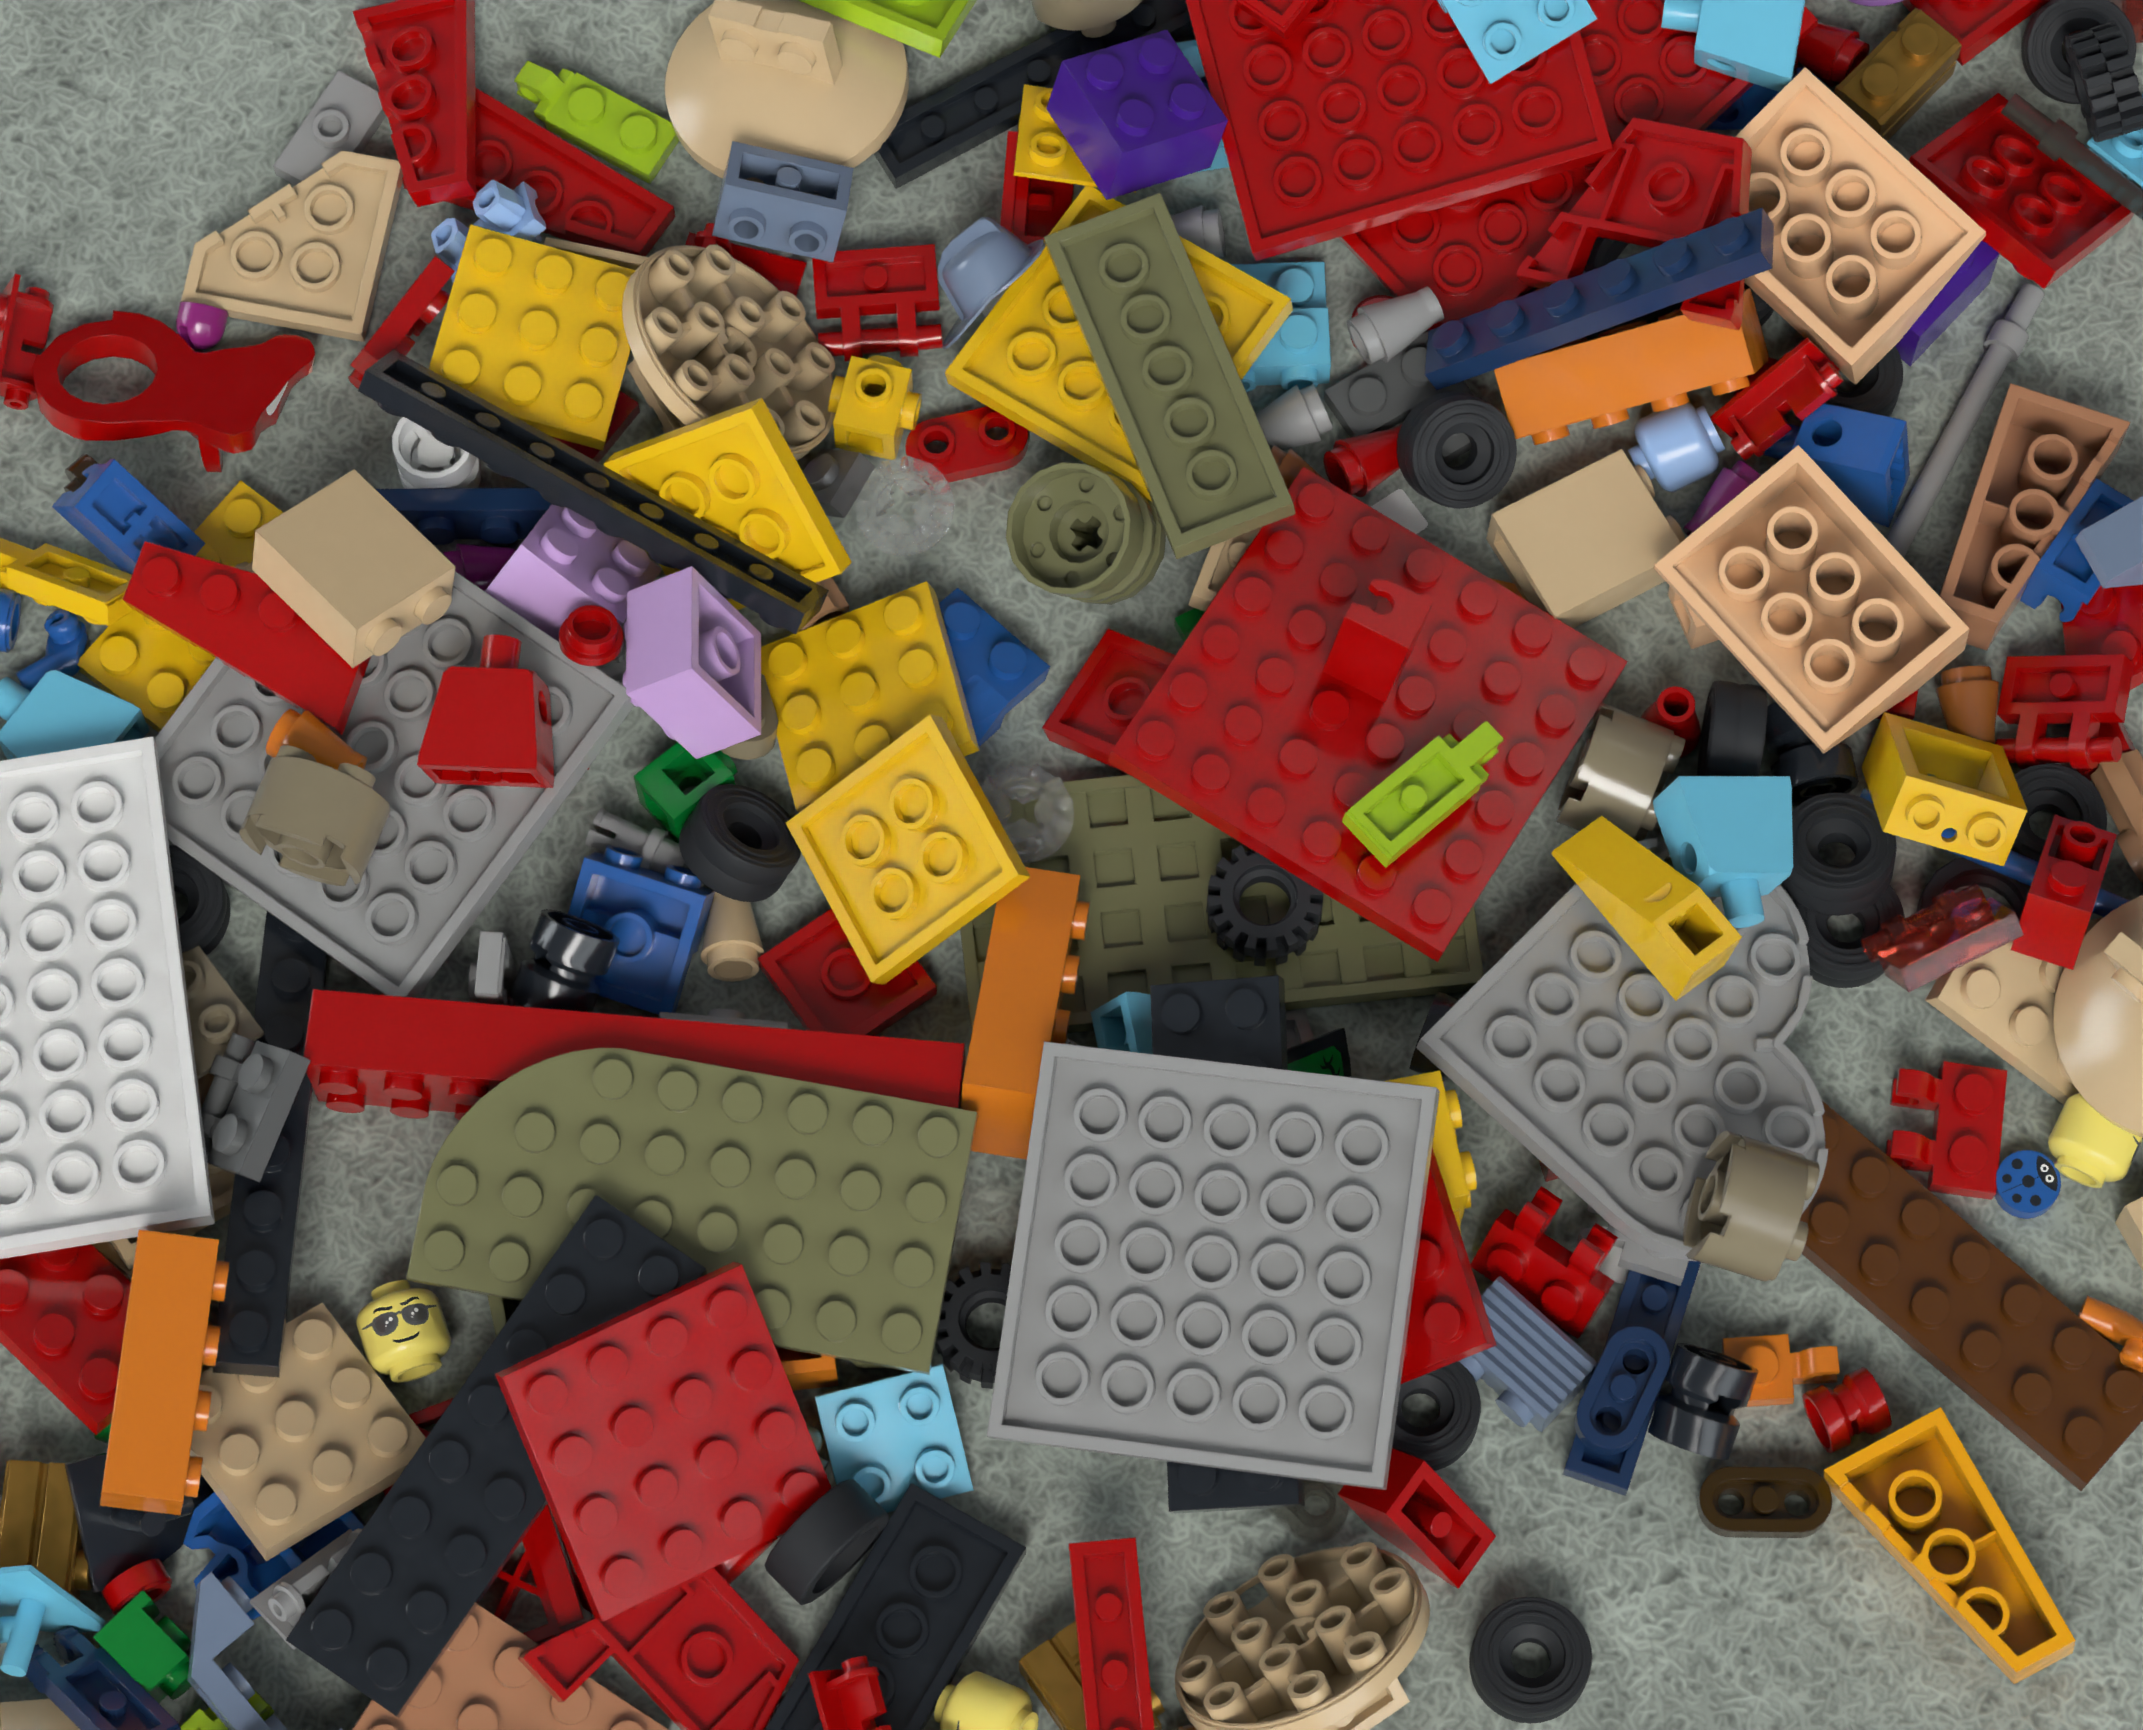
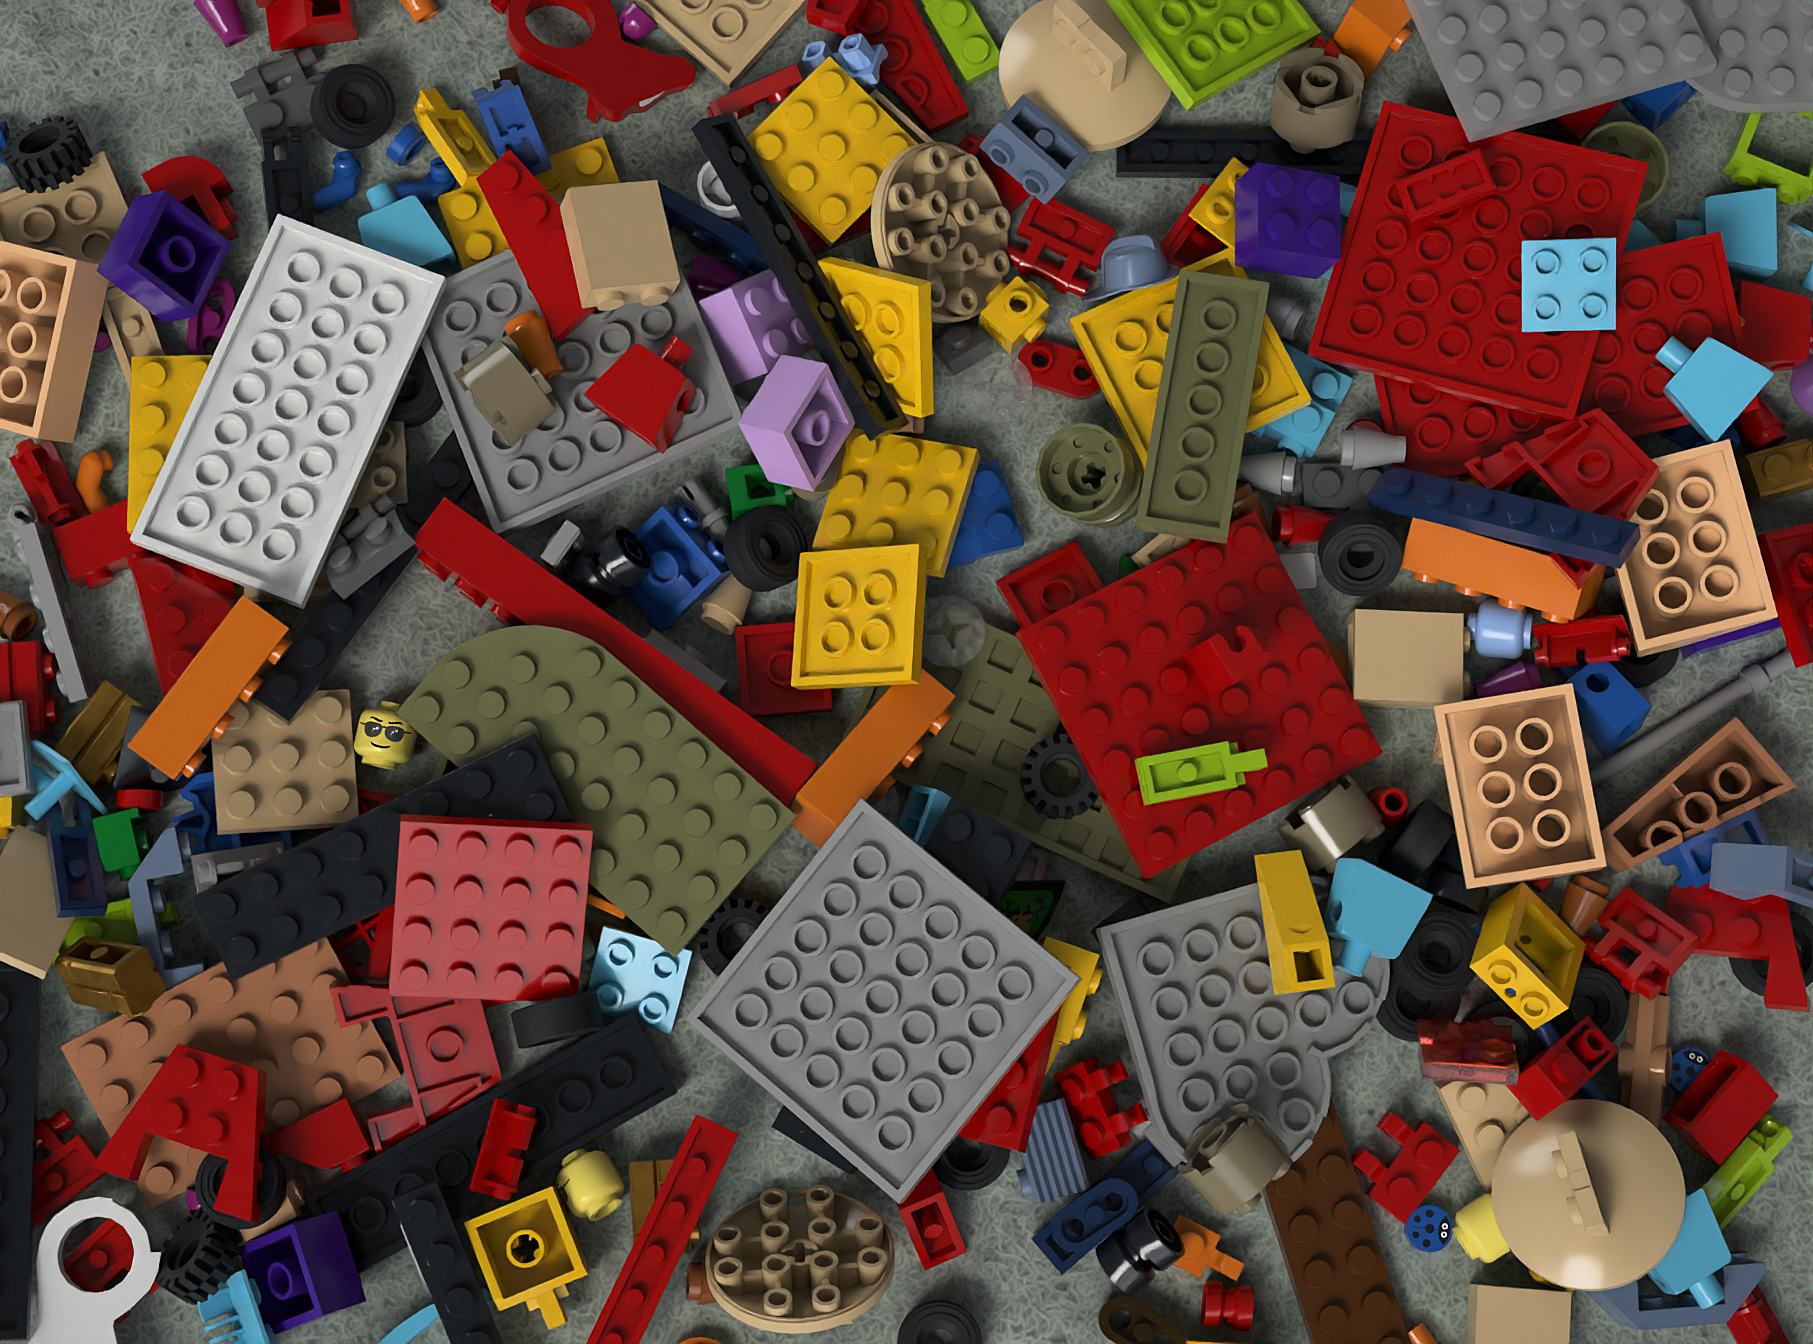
camera: 25 degrees right, 10 degrees up
(591, 636) = (741, 371): red plate -> none

